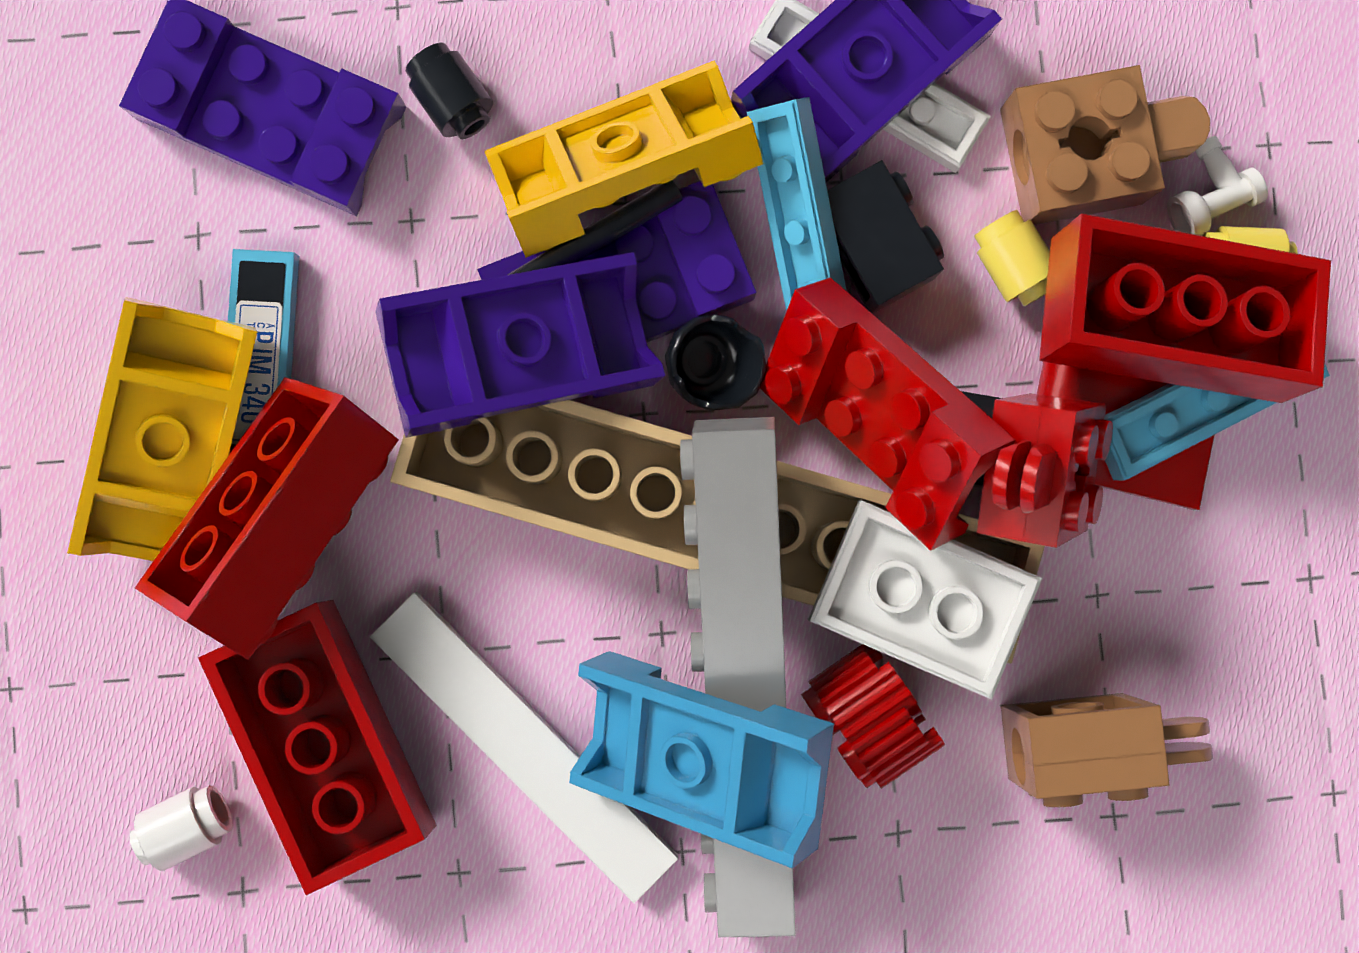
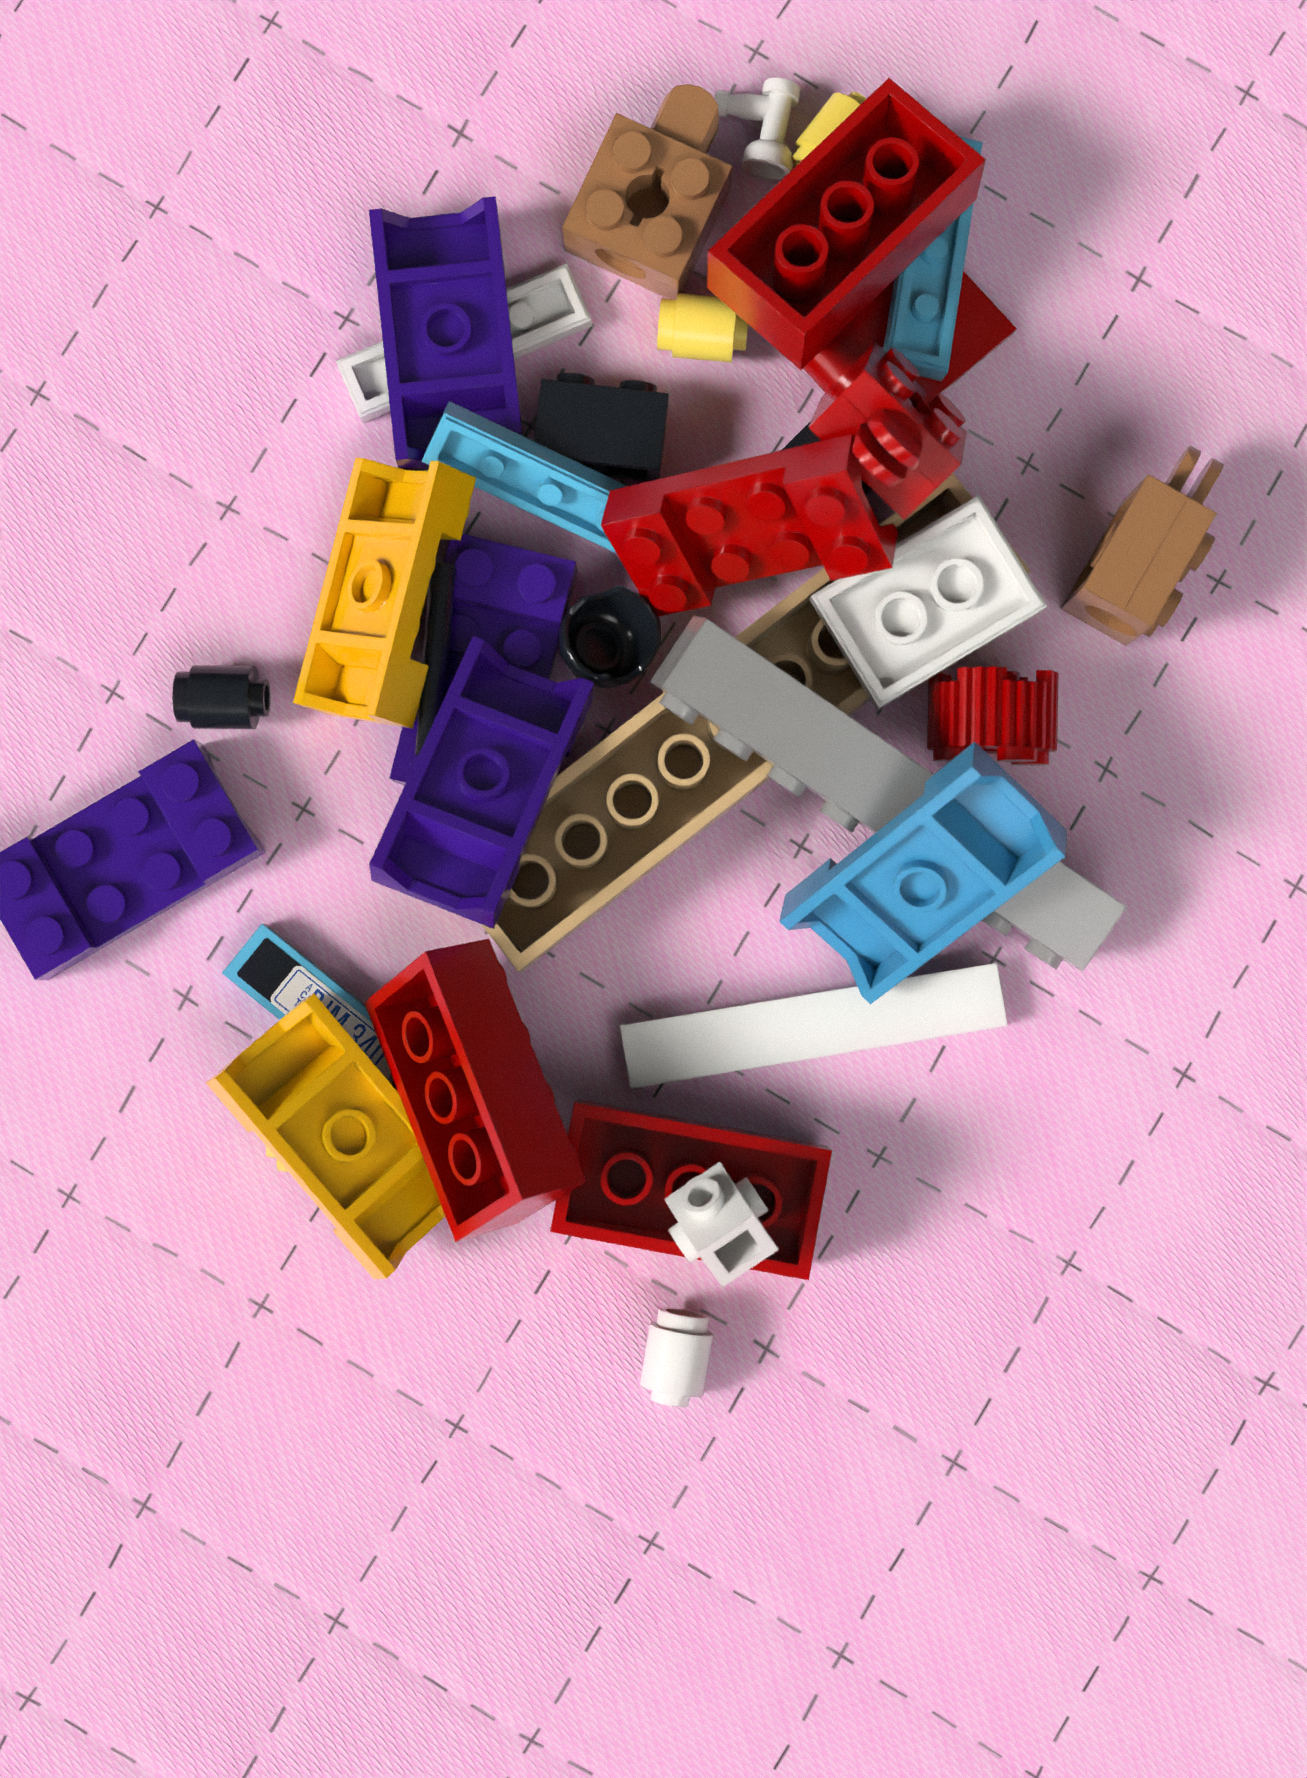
camera: 50 degrees left, 0 degrees up
(291, 795) = (720, 1224): none -> white brick

